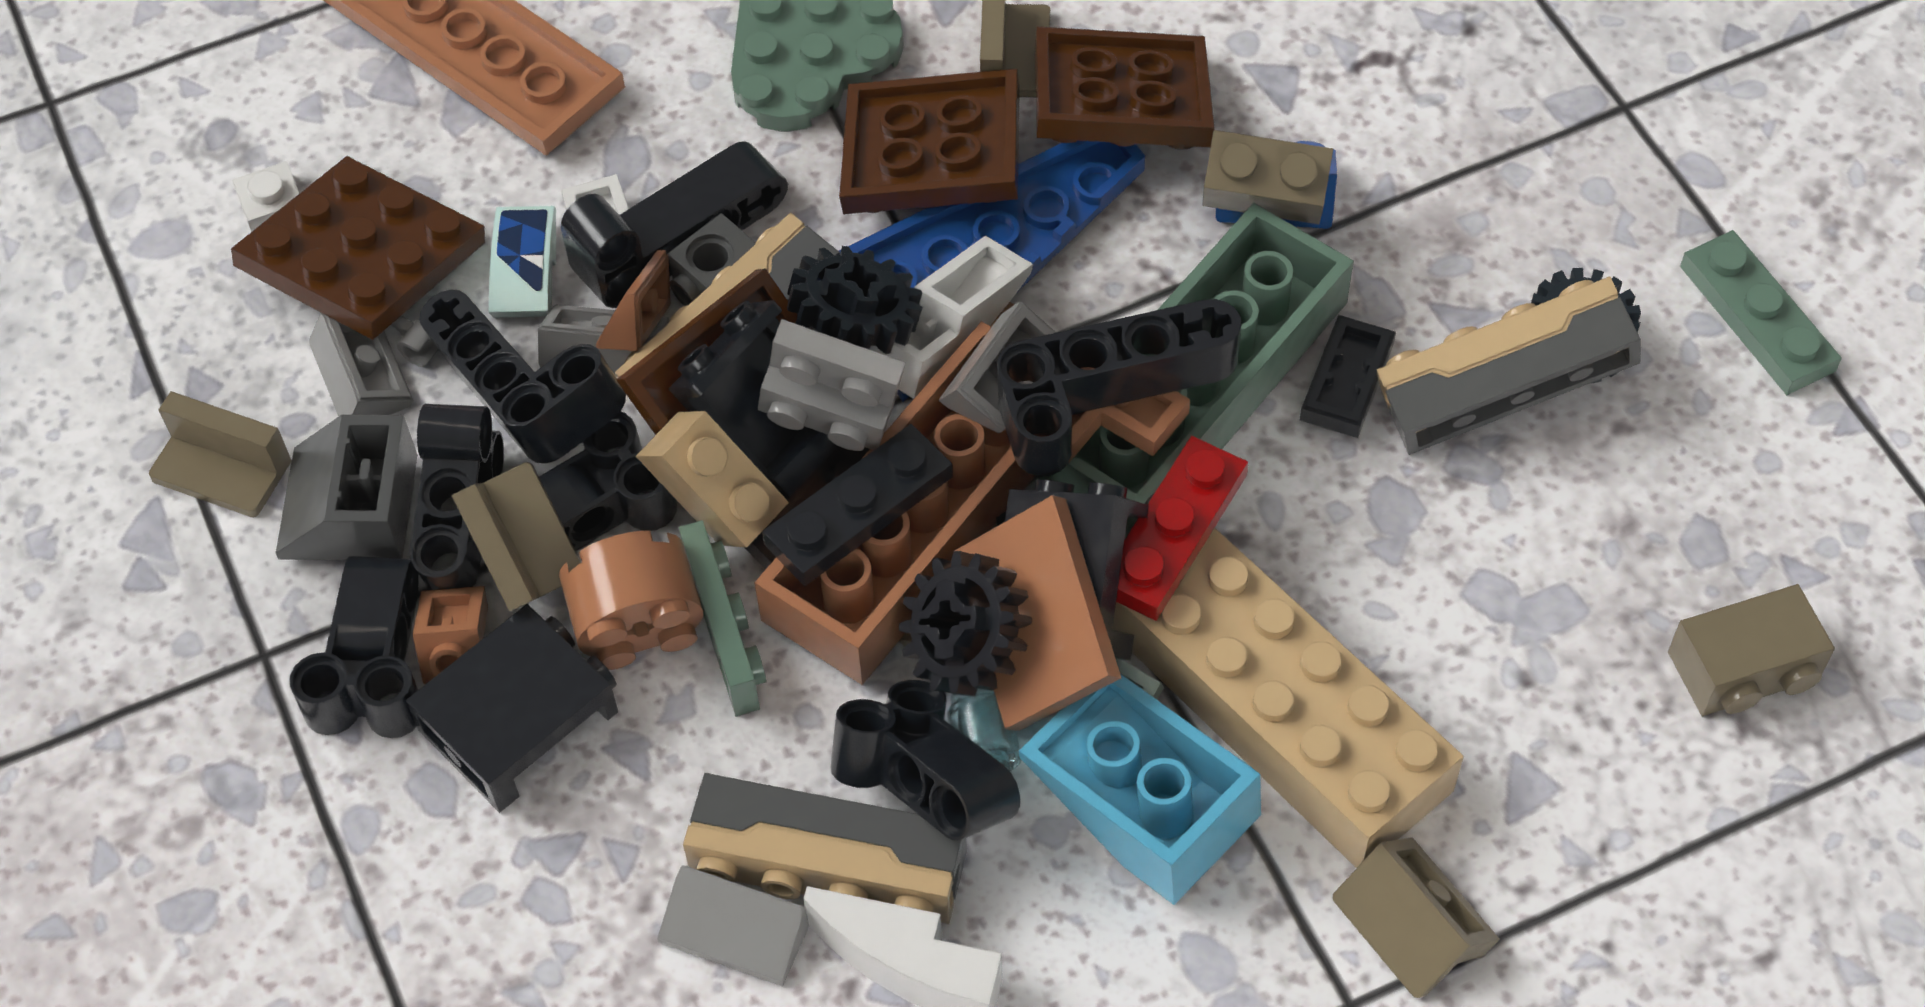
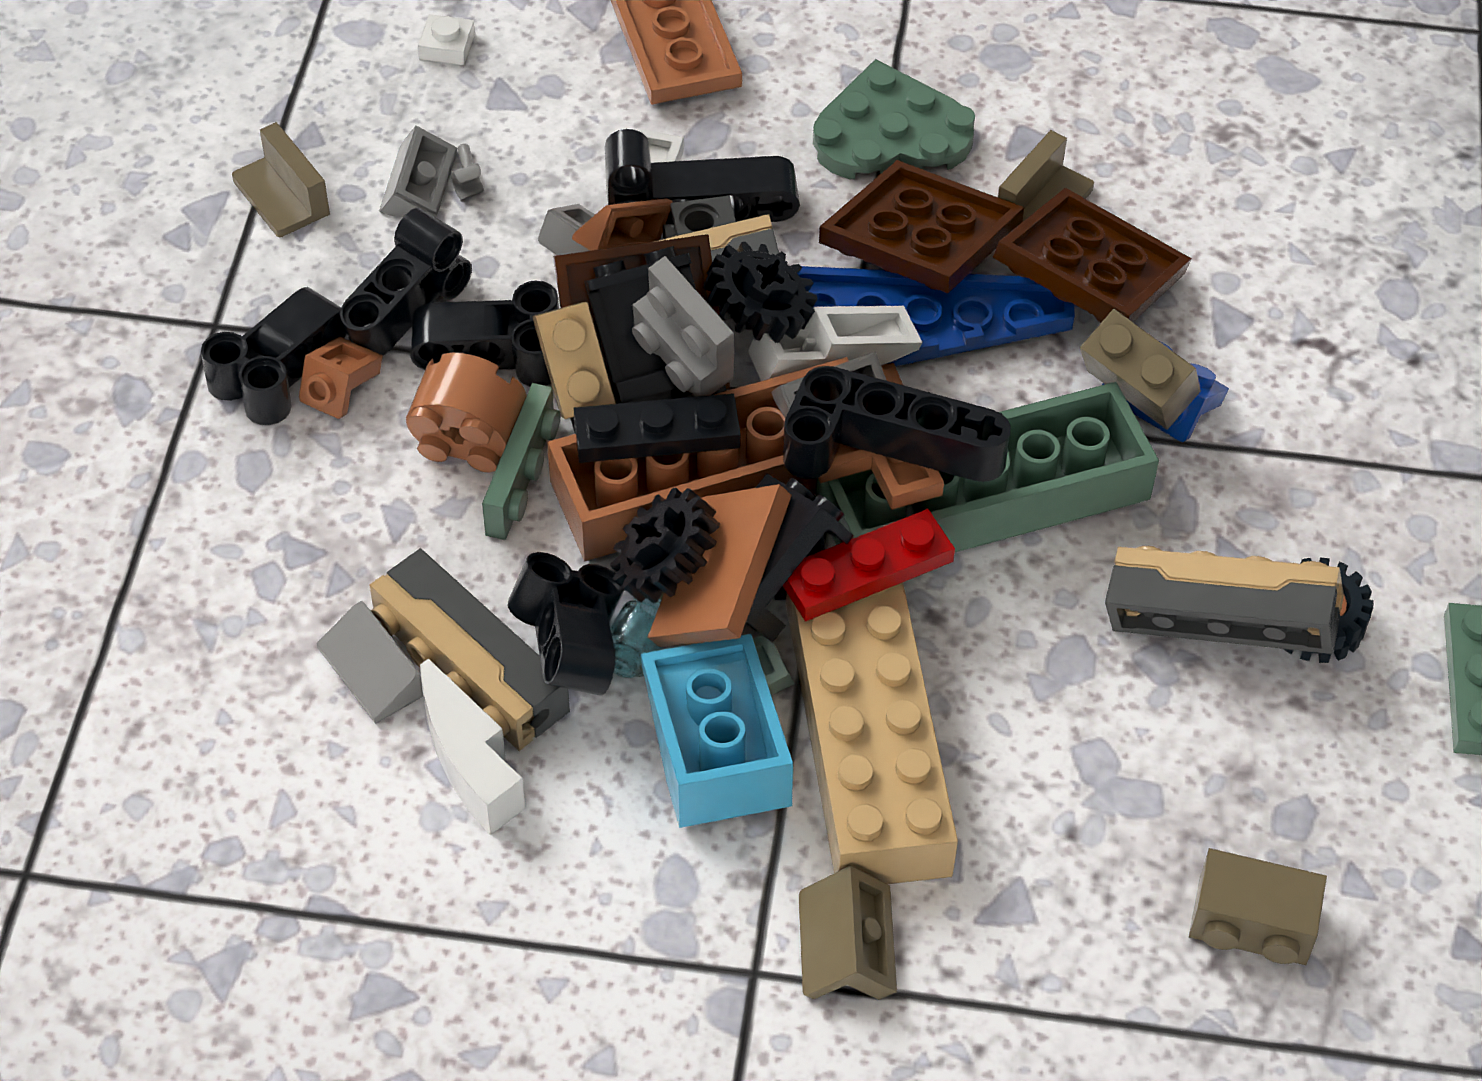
camera: 30 degrees right, 5 degrees down
(349, 491) = (341, 246): dark grey slope -> none
(358, 247) = (475, 97): reddish brown plate -> none
(511, 702) = (339, 435): black panel -> none
(517, 534) = (415, 324): dark tan panel -> none
(522, 261) = (572, 164): slope -> none
(540, 410) = (496, 246): black beam -> none
(1347, 376) = (1090, 553): black plate -> none

